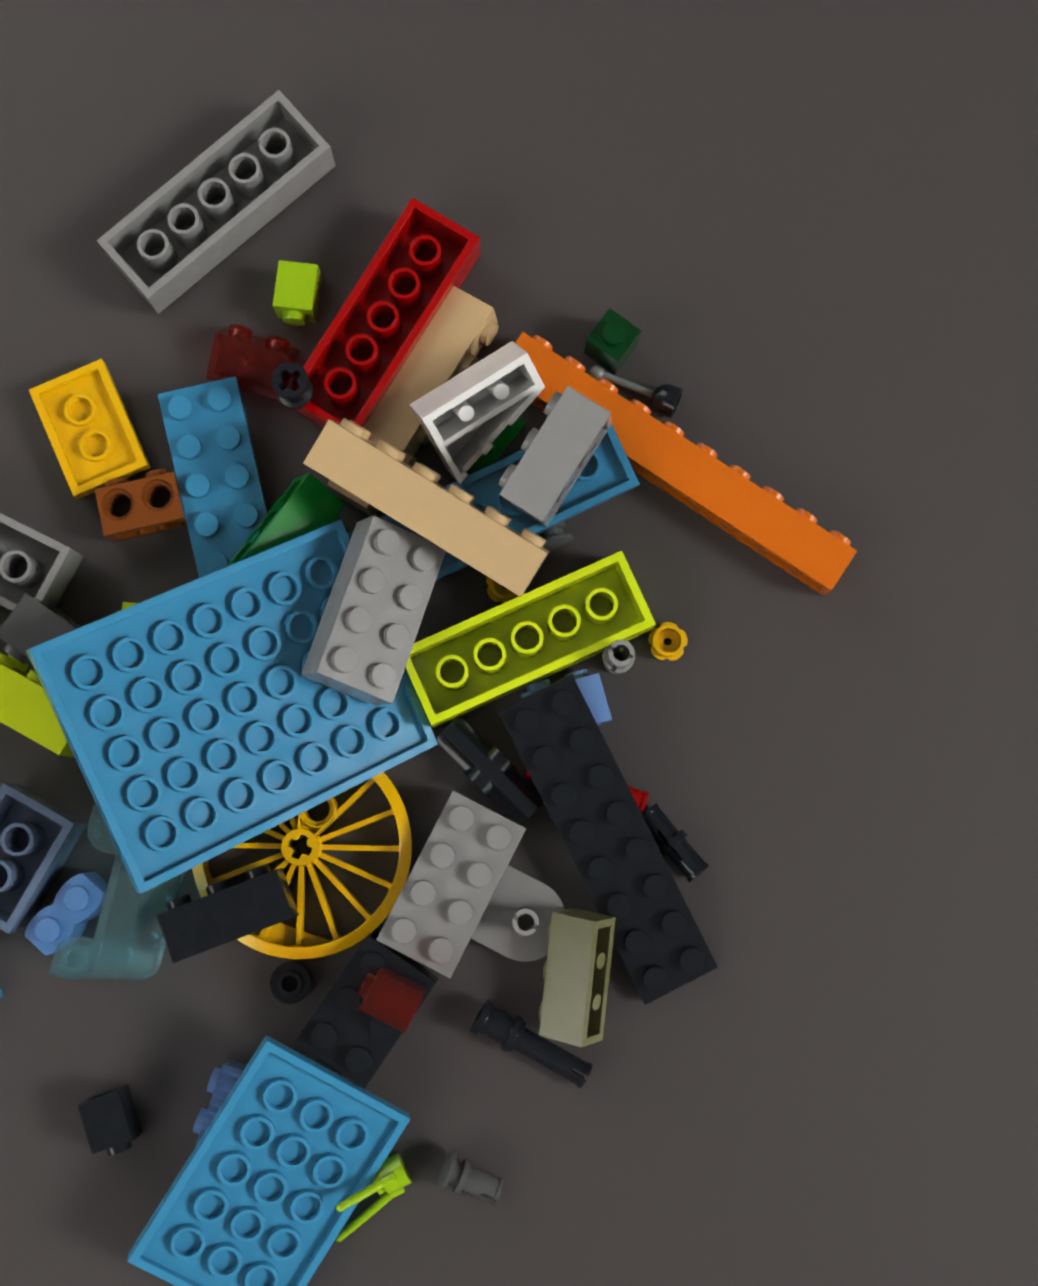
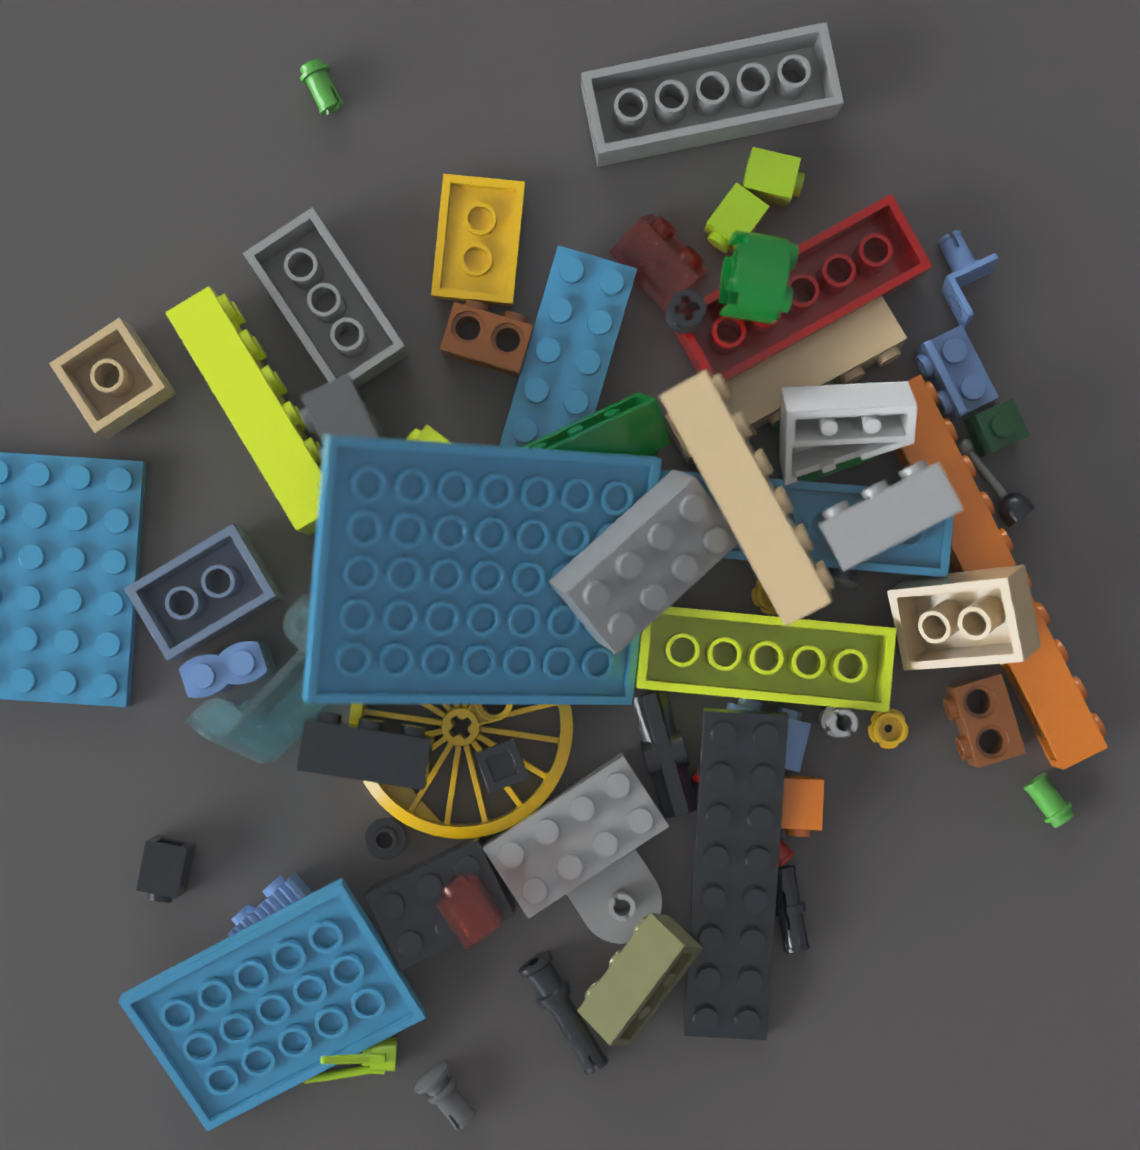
camera: 30 degrees right, 5 degrees up
(309, 239) = (773, 176): none -> lime brick
(334, 324) = (757, 277): none -> green brick
(352, 858) = (501, 765): none -> black plate
(513, 231) = (965, 271): none -> medium blue bracket
(553, 317) = (955, 373): none -> medium blue bracket
(631, 747) = (802, 805): none -> orange brick
(673, 510) = (964, 618): none -> tan brick
(750, 579) = (994, 714): none -> dark orange brick
(837, 624) = (1049, 800): none -> bright green pin

